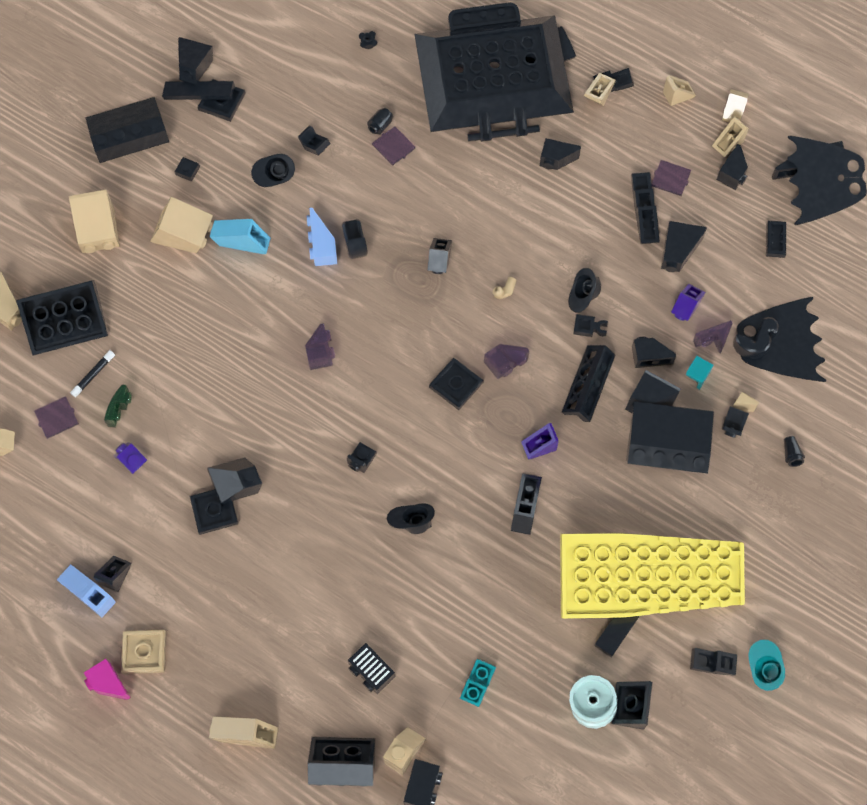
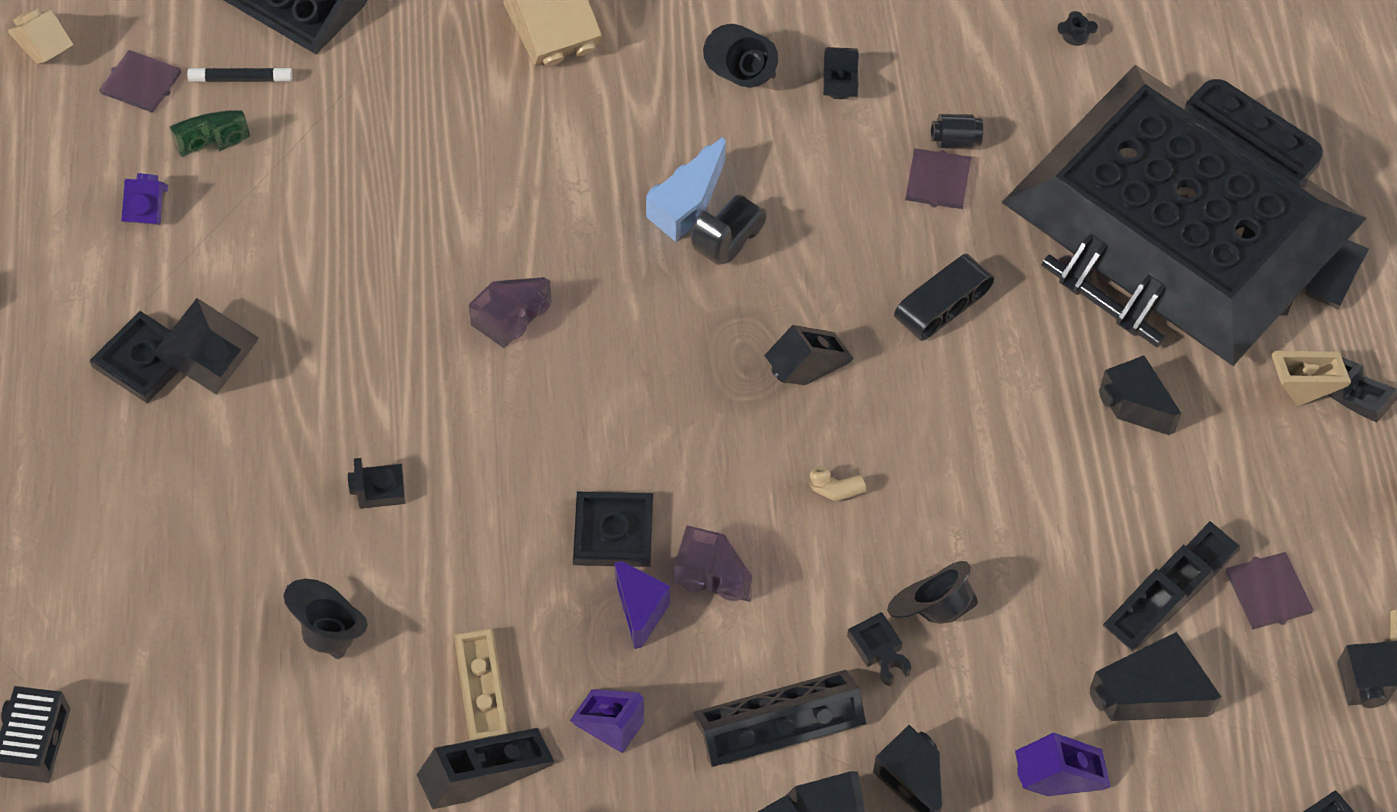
camera: 50 degrees right, 10 degrees down
(240, 235) = (604, 92): medium azure slope -> none
(454, 186) = (944, 297): none -> black beam
(487, 481) = (481, 684): none -> tan tile
(499, 396) = (642, 601): none -> dark purple slope

